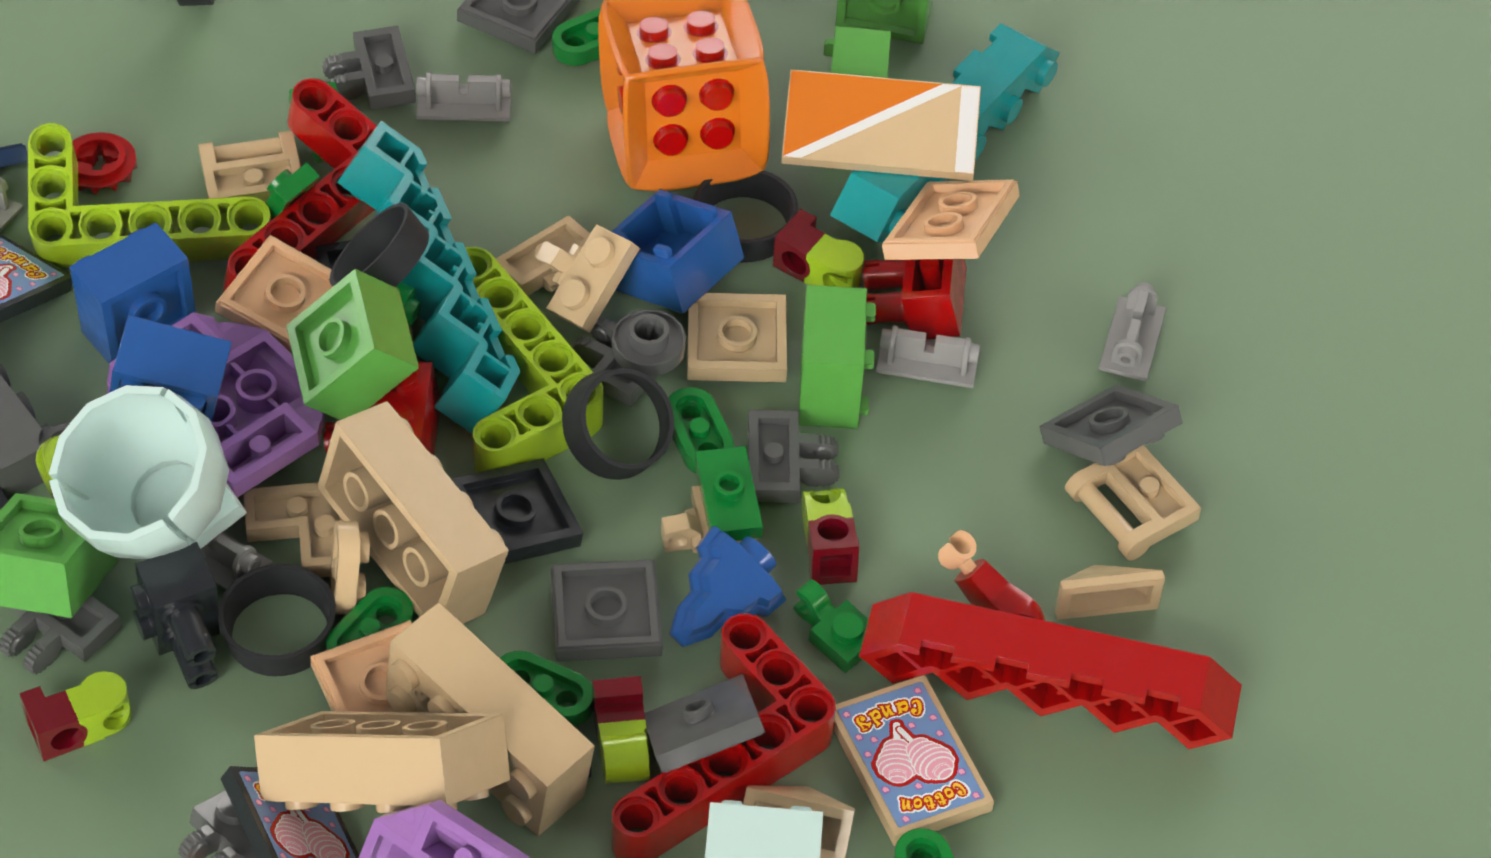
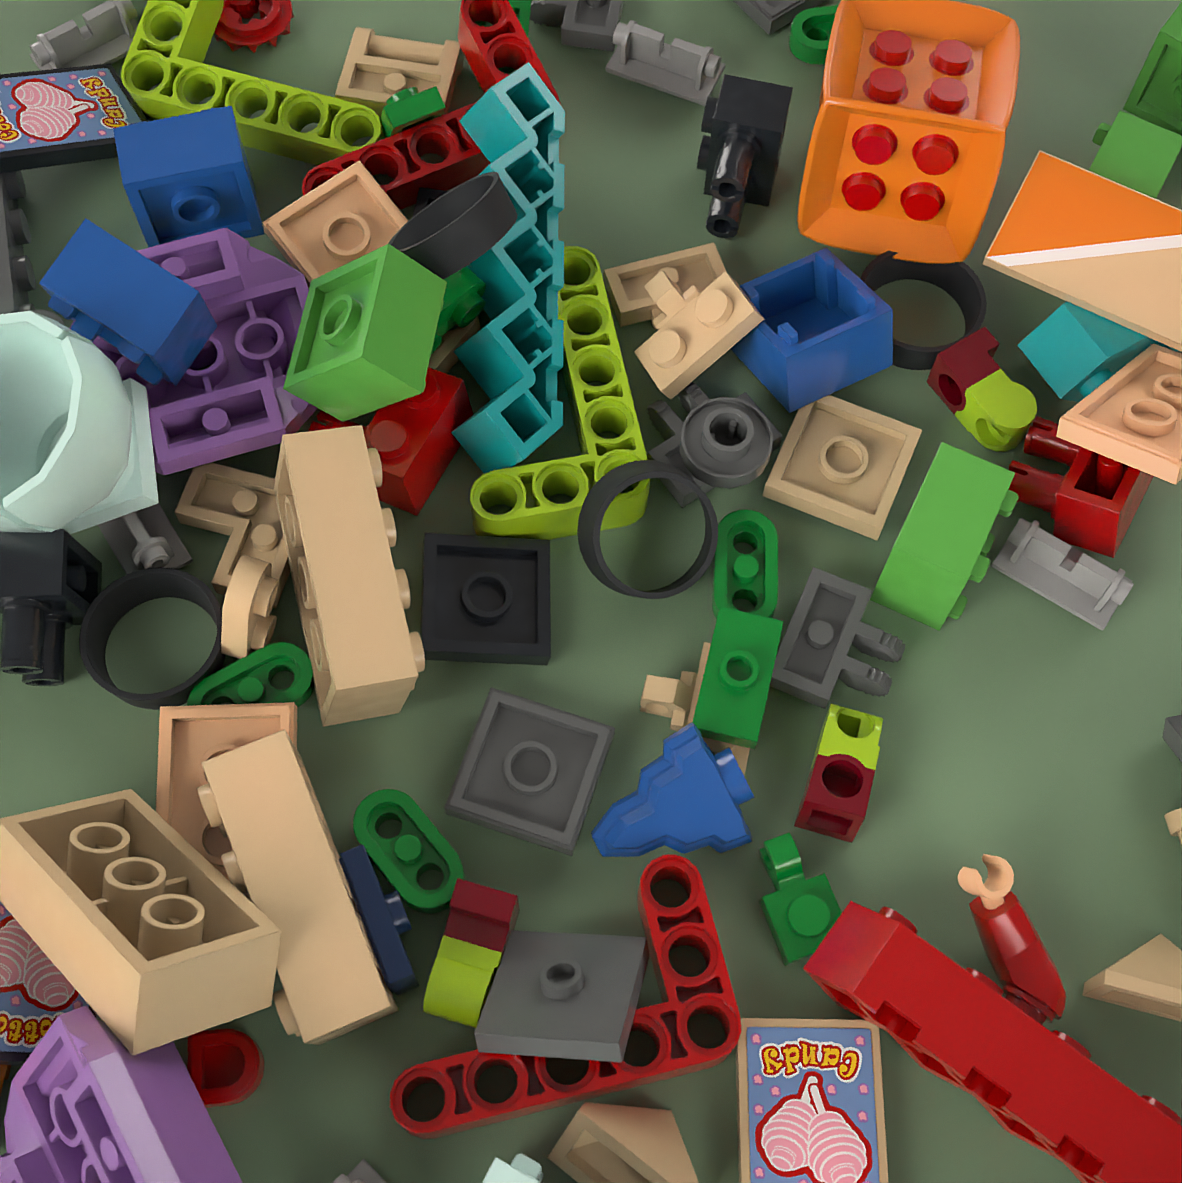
camera: 25 degrees right, 15 degrees up
(561, 141) = (743, 148): none -> black brick

